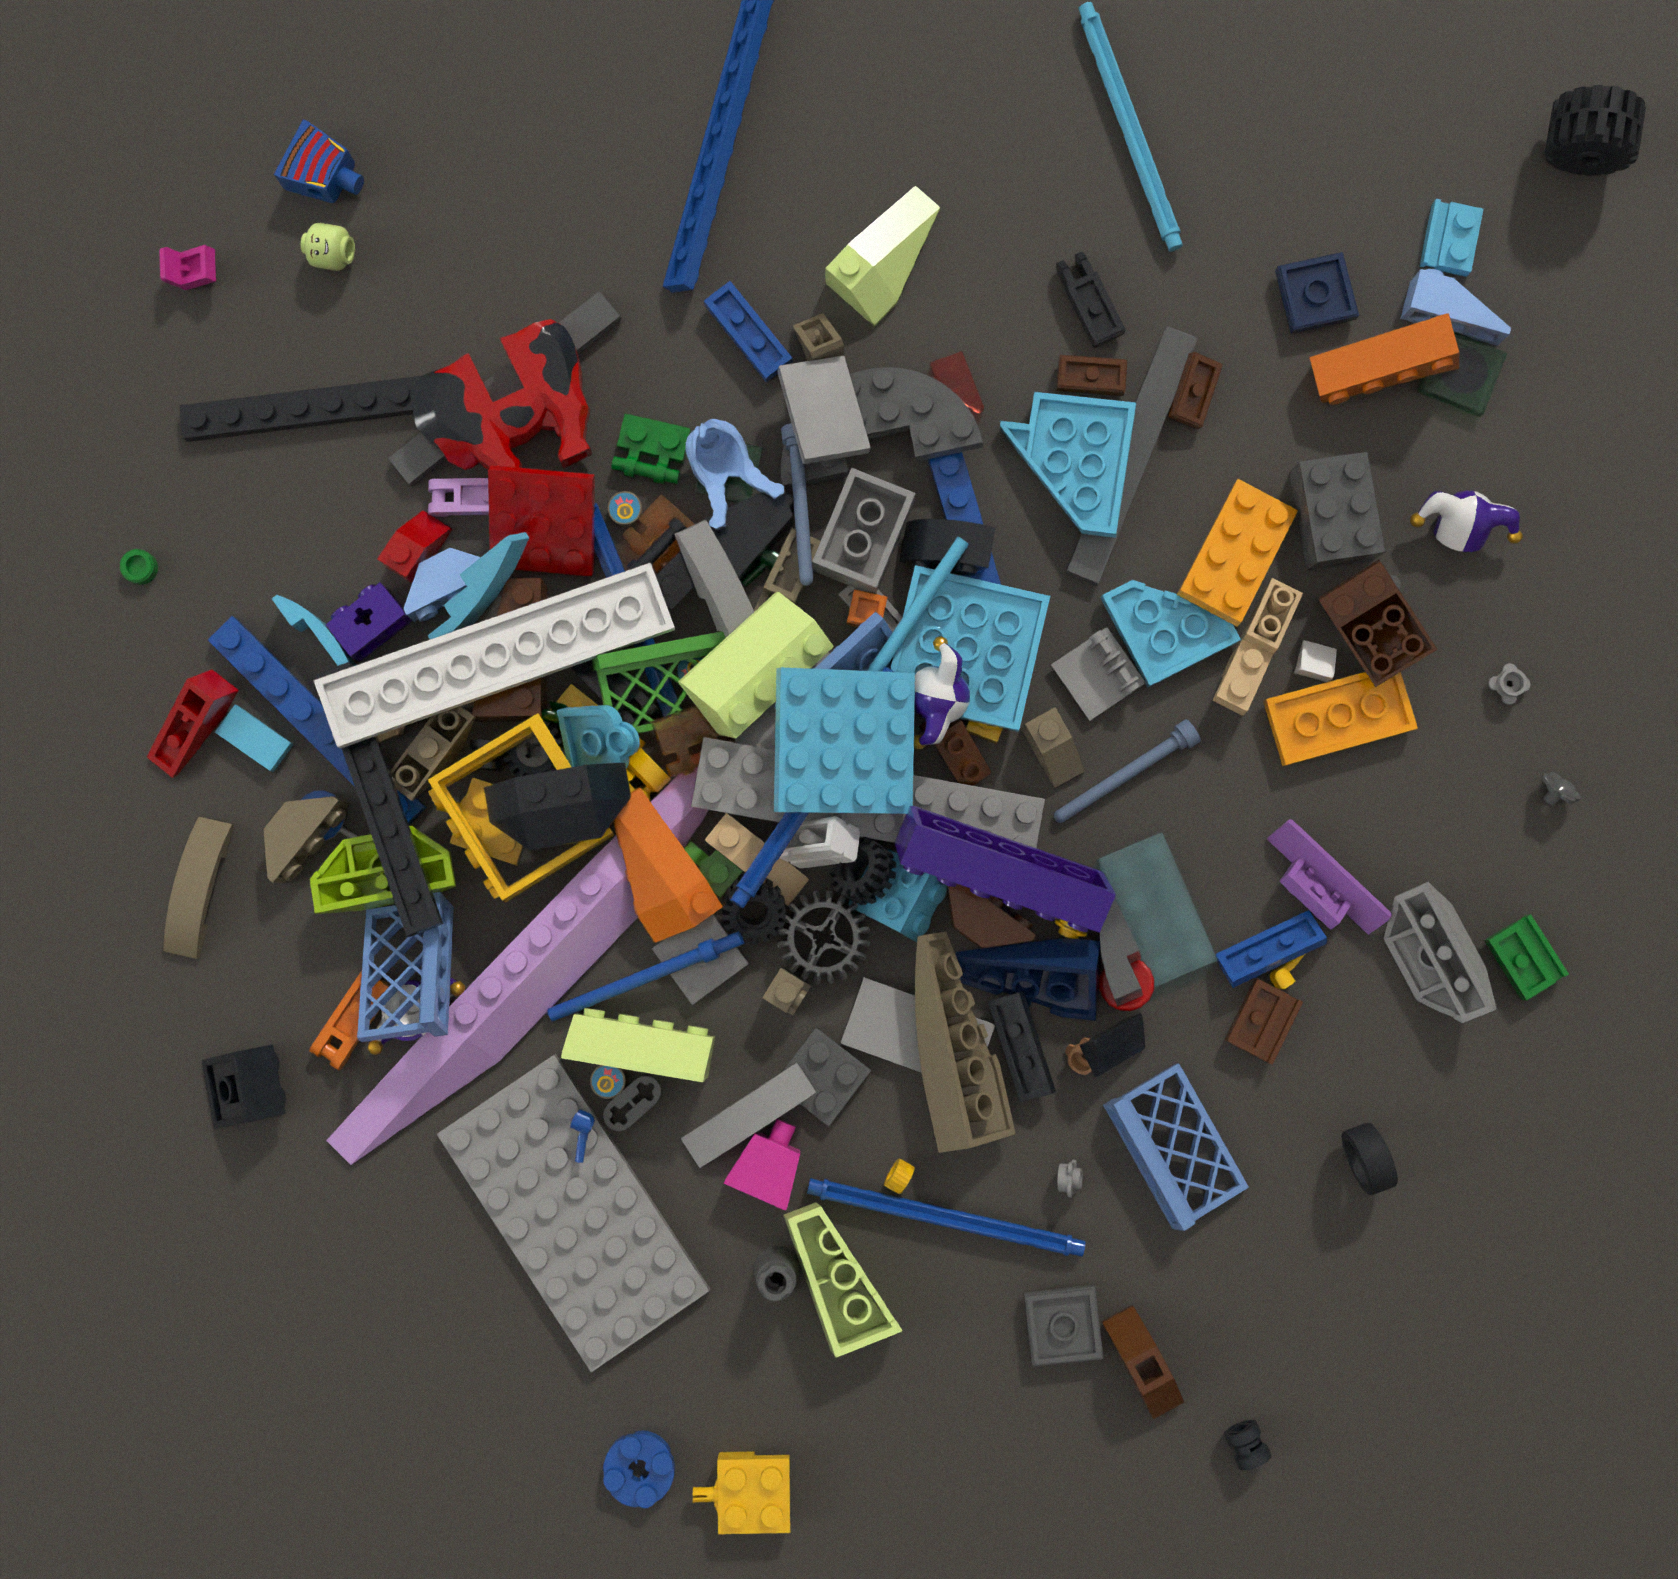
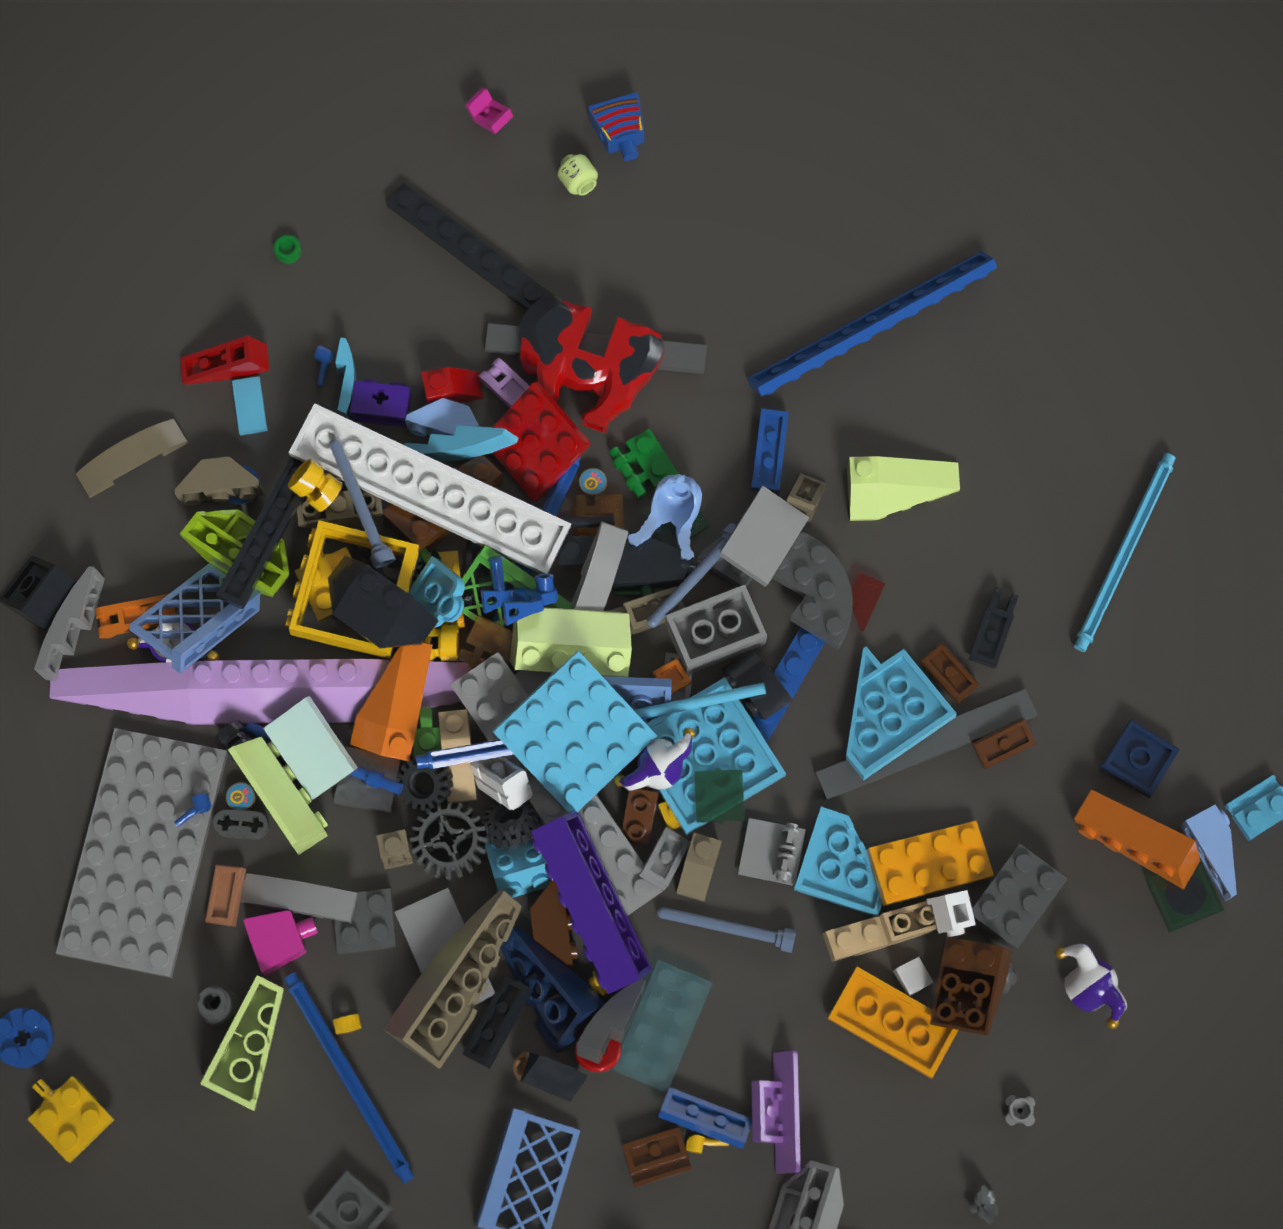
camera: 45 degrees right, 10 degrees down
(276, 629) = (325, 356): none -> blue hand
(288, 696) = (292, 402): blue plate -> none
(296, 1075) = (74, 614): none -> light grey slope
(385, 752) = (317, 487): none -> yellow wheel
(513, 754) = (381, 554): none -> sand blue piece
(549, 1037) = (232, 735): none -> black wheel
(627, 981) = (310, 748): none -> light aqua tile
(683, 1175) = (225, 895): none -> nougat tile
(687, 659) = (523, 599): none -> blue piece
(1015, 671) = (719, 796): none -> clear green piece
(1019, 769) = (664, 858): none -> light grey plate
(1069, 1178) = (444, 1129): light grey plate -> none
(1303, 574) = (952, 913): none -> white brick

